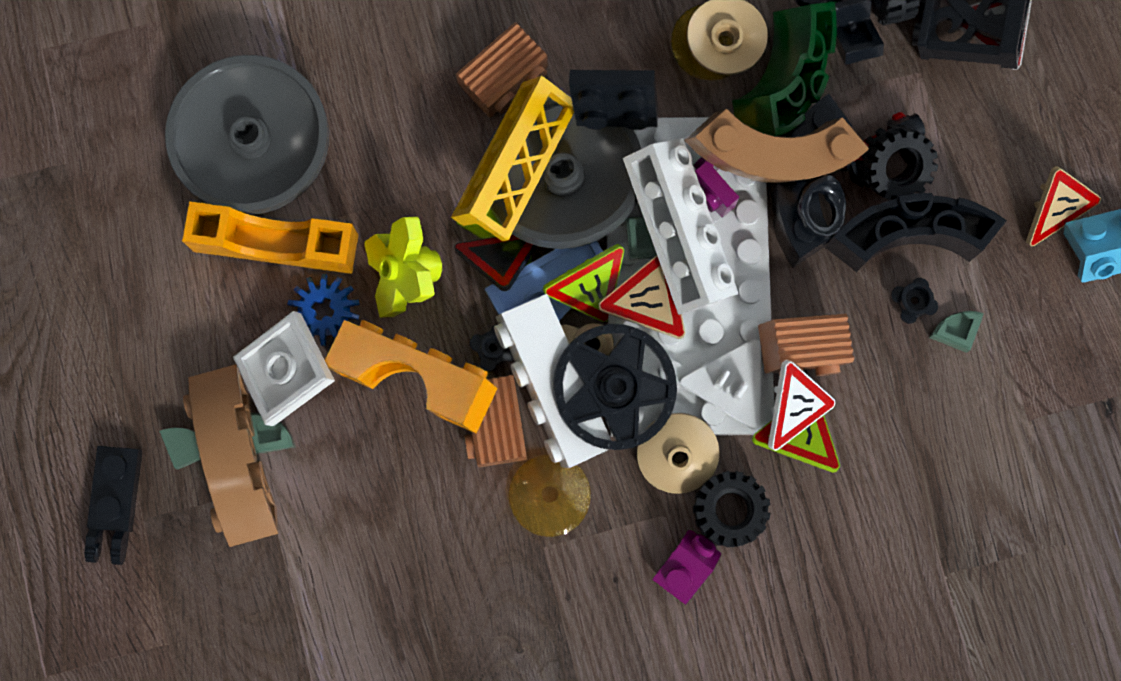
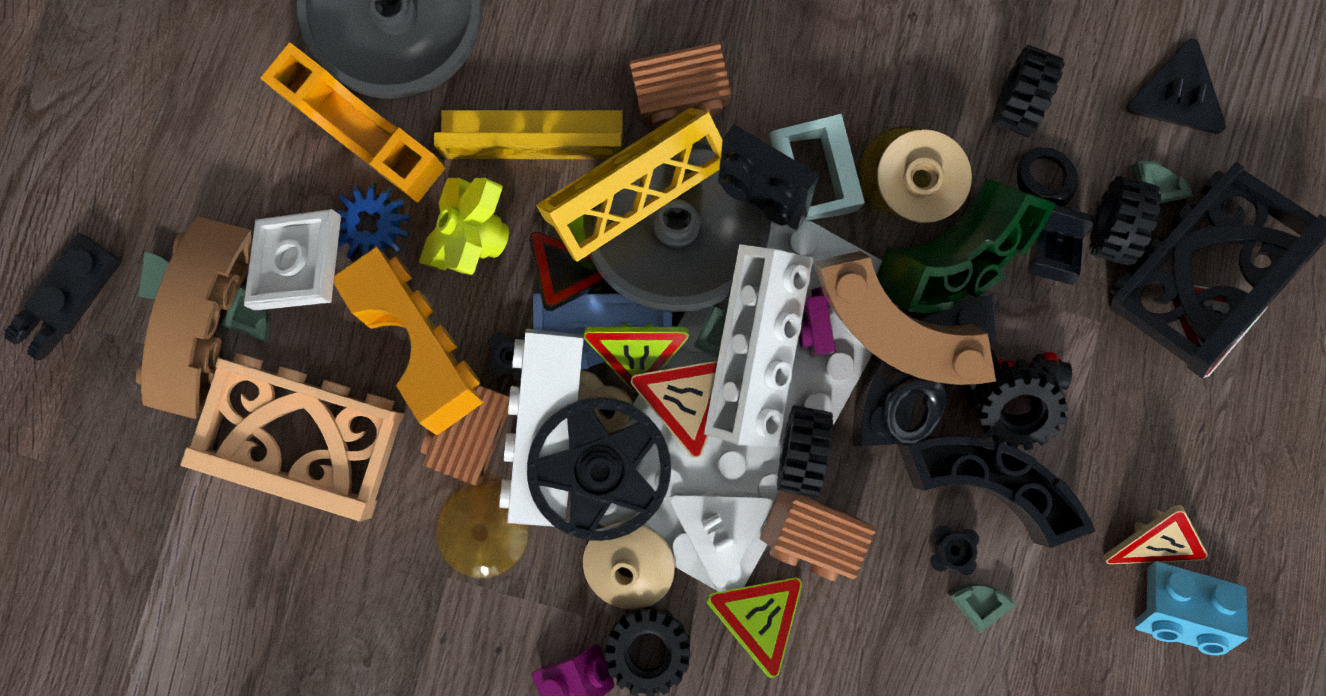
camera: 35 degrees right, 5 degrees up
(323, 547) = (234, 458): none -> light nougat fence
(411, 172) = (529, 134): none -> yellow fence
(655, 58) = (838, 159): none -> light aqua tile
(760, 283) = (805, 451): none -> black tyre
(797, 405) = (770, 591): piece -> none

